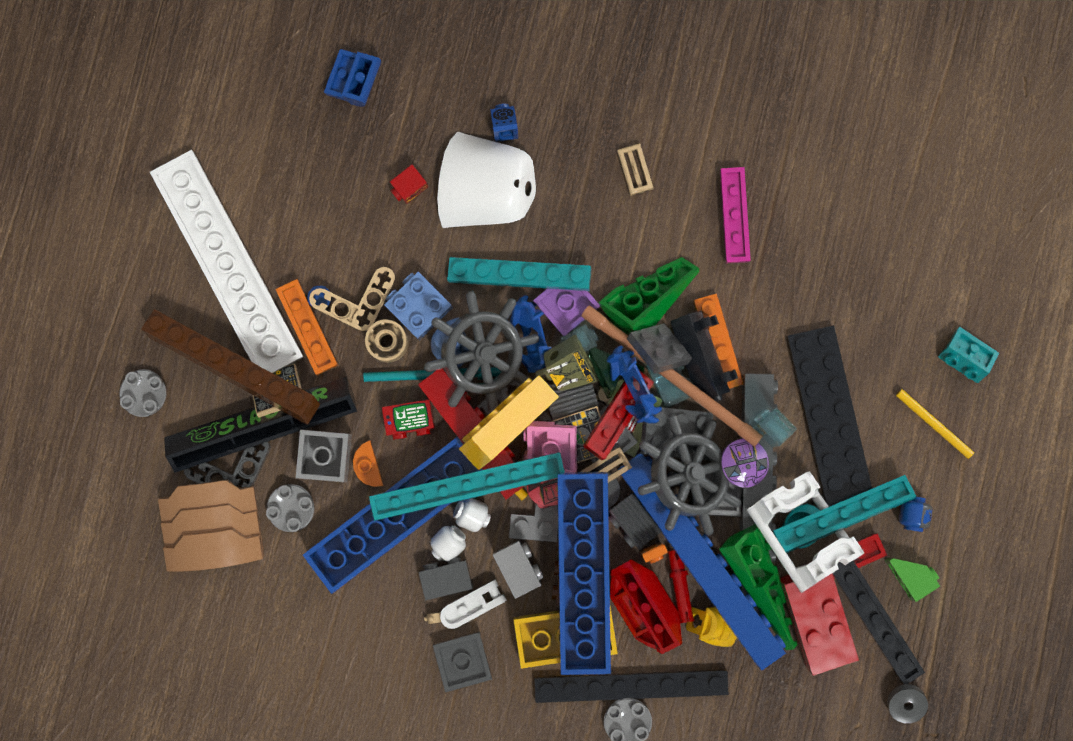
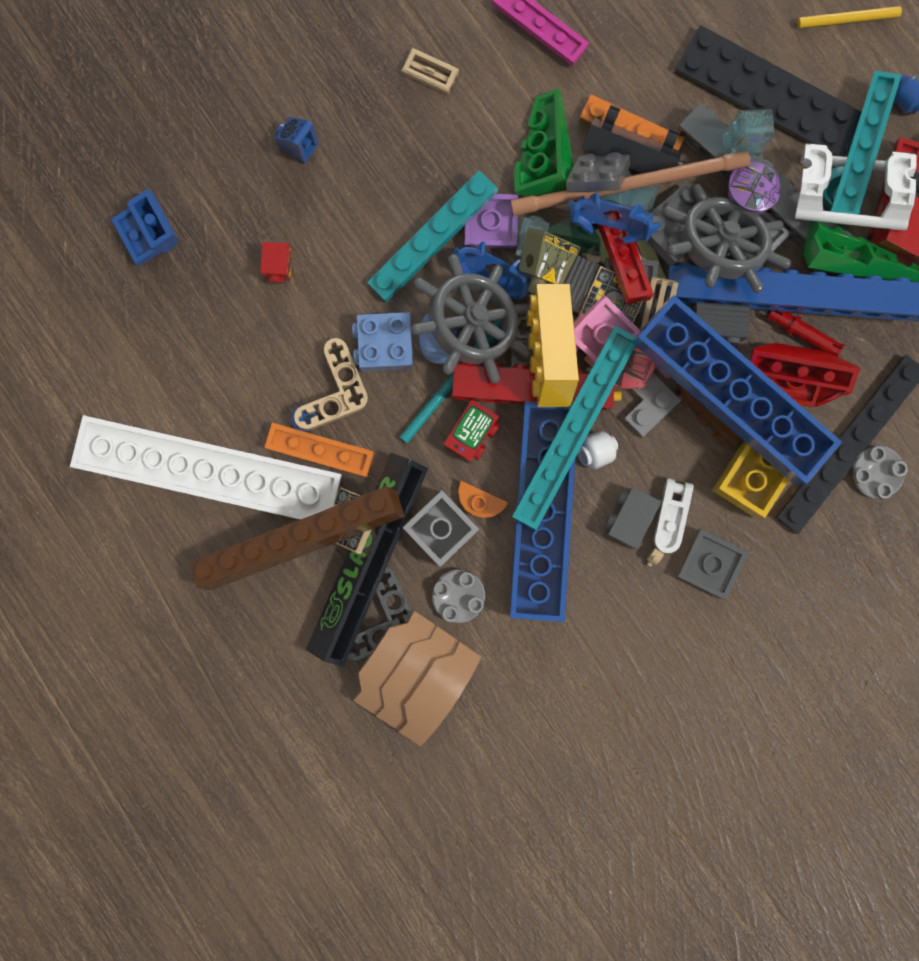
camera: 55 degrees left, 0 degrees up
(142, 393) = (251, 636): light grey dish -> none
(375, 334) = (391, 377): tan piece -> none
(448, 543) = (604, 490): white head -> none
(479, 183) = (330, 200): white piece -> none
(518, 569) = (678, 448): light grey brick -> none
(653, 553) = (761, 326): orange plate -> none
(713, 628) = (866, 333): yellow piece -> none

